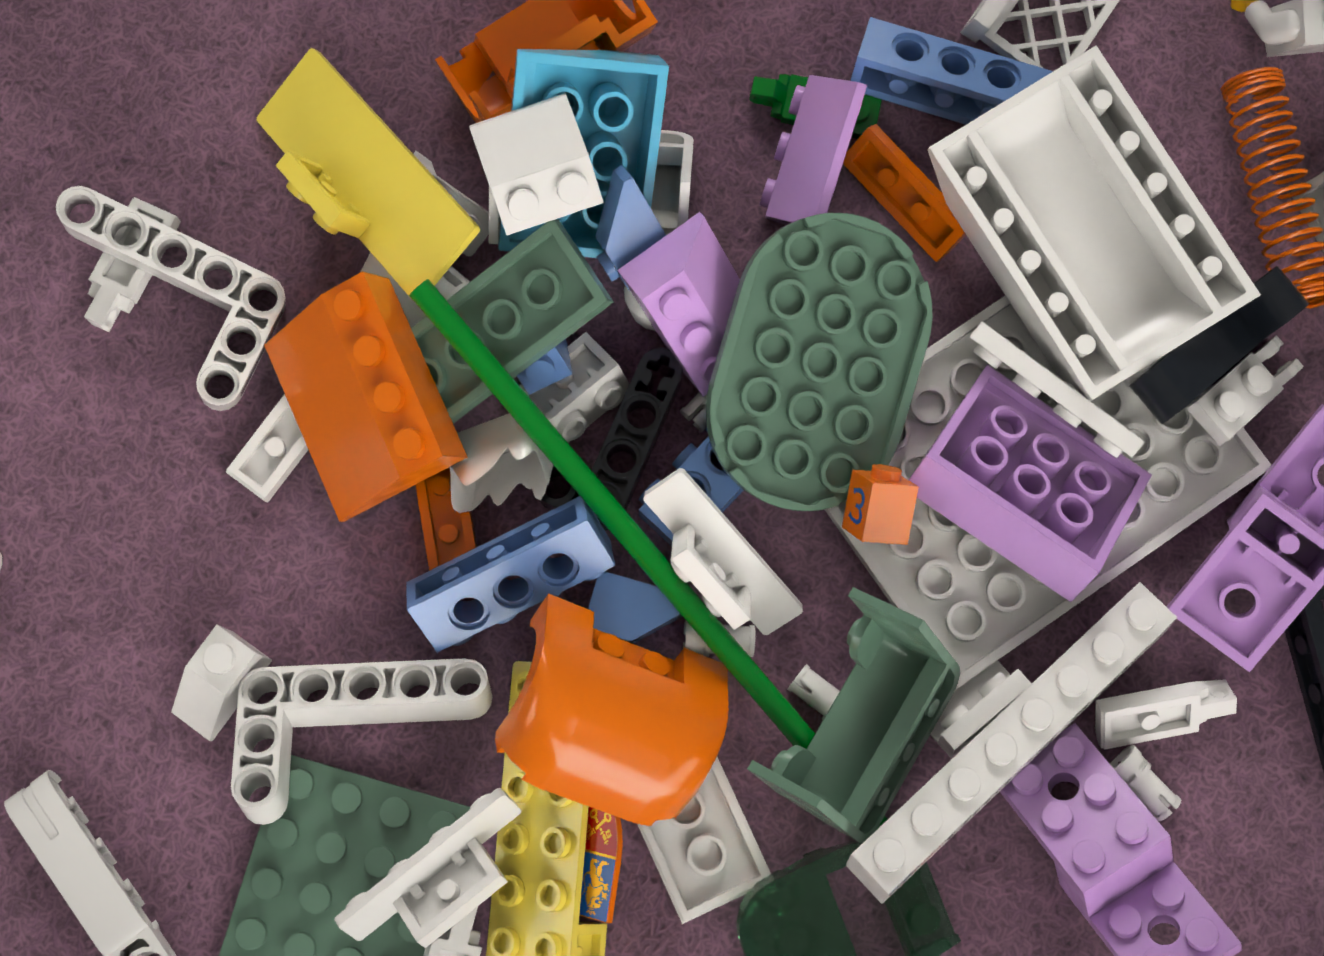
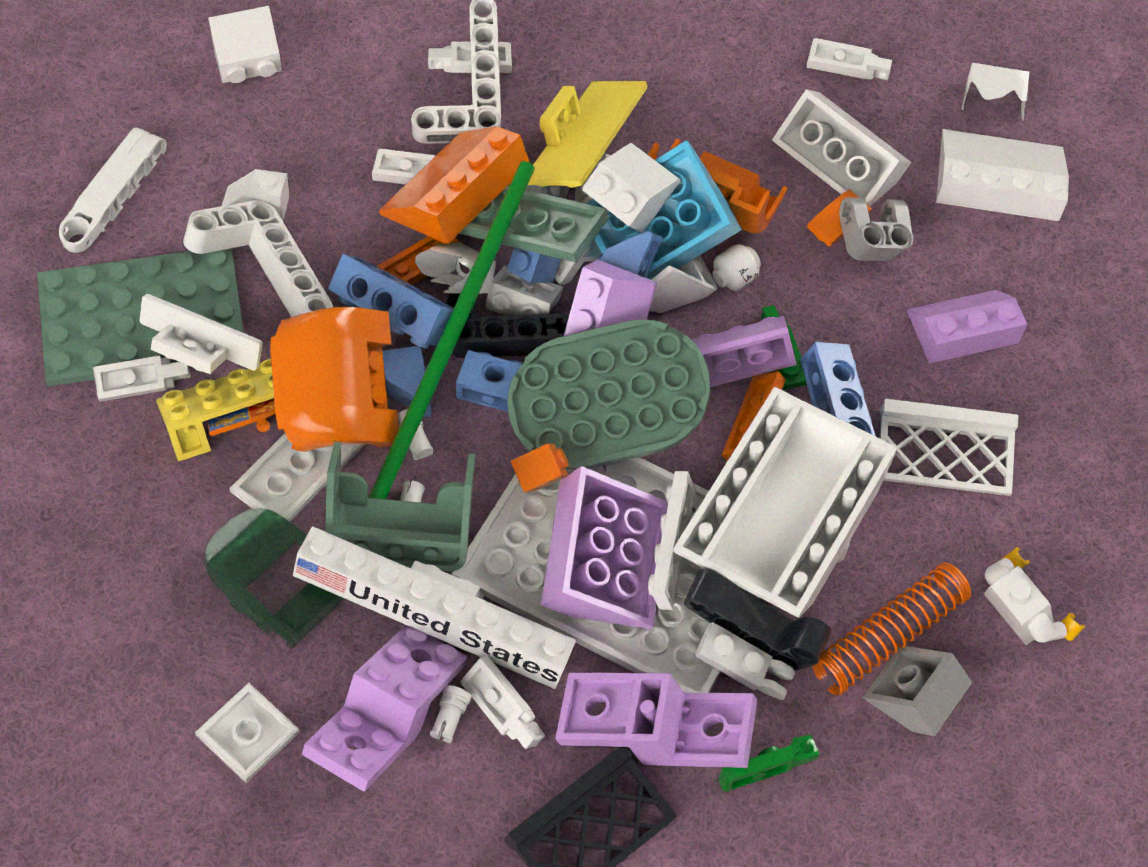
camera: 60 degrees right, 20 degrees down
(682, 94) = (736, 267): none -> white head
(718, 558) = (457, 400): white bracket -> none

